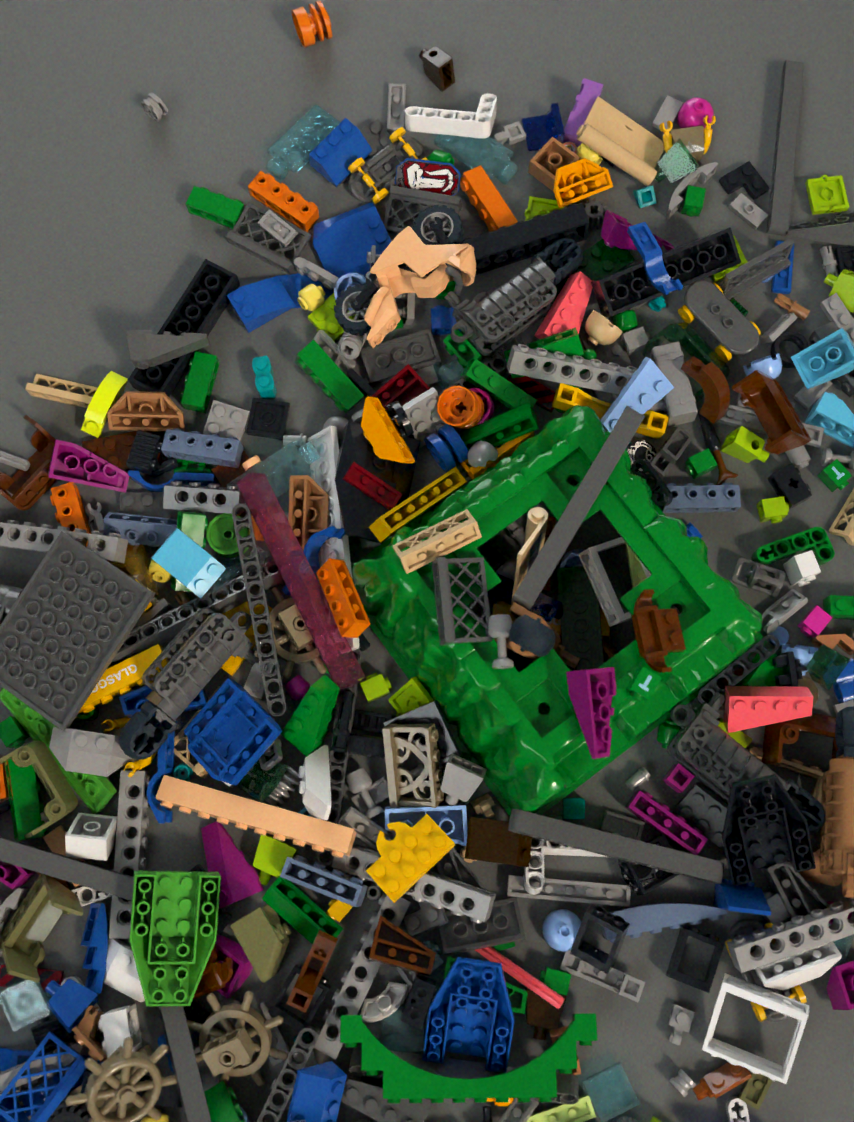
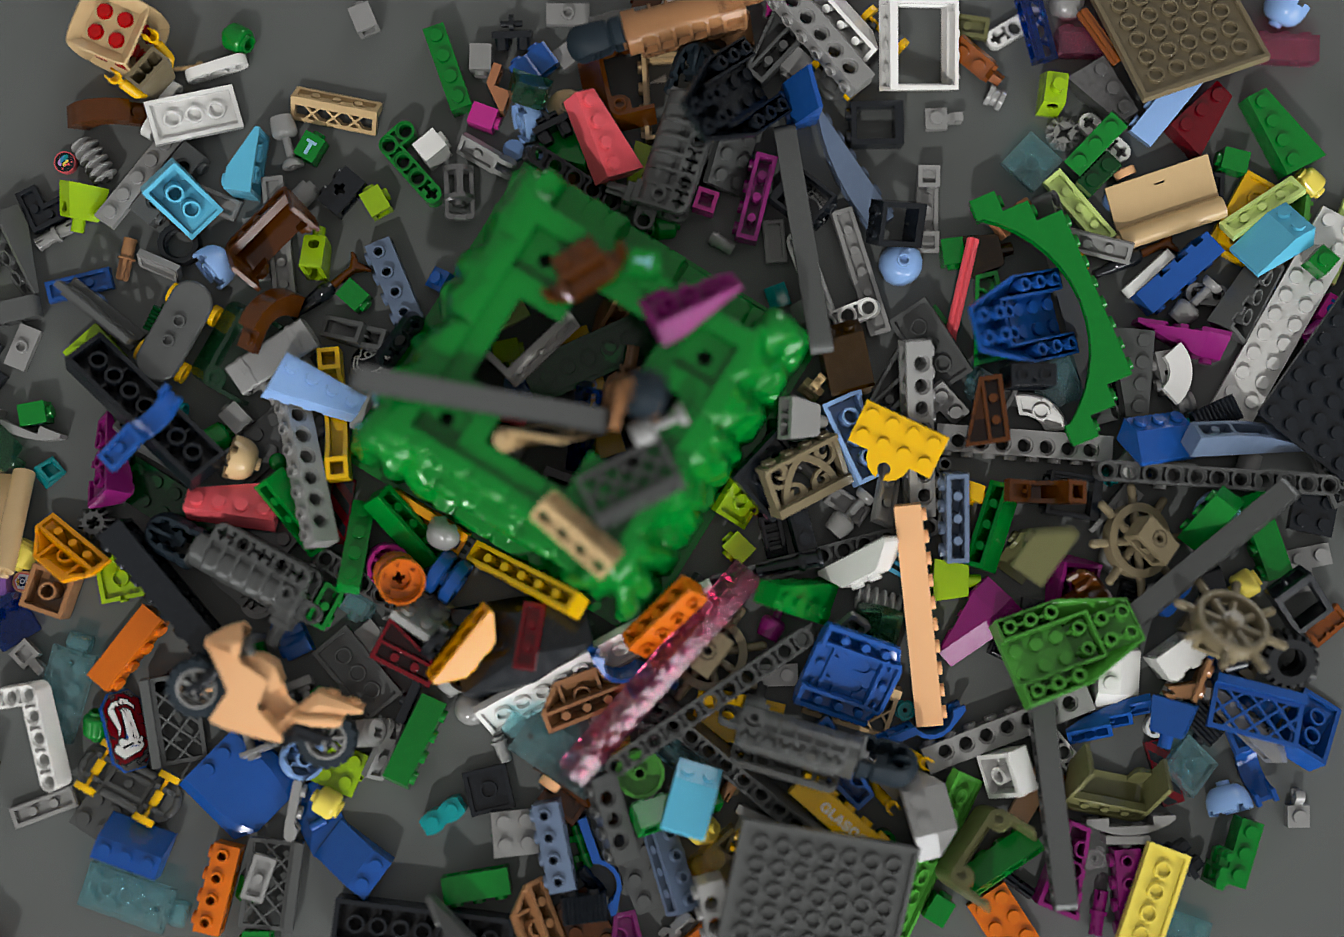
camera: 120 degrees left, 10 degrees up
(612, 564) = (508, 350): none -> lime brick

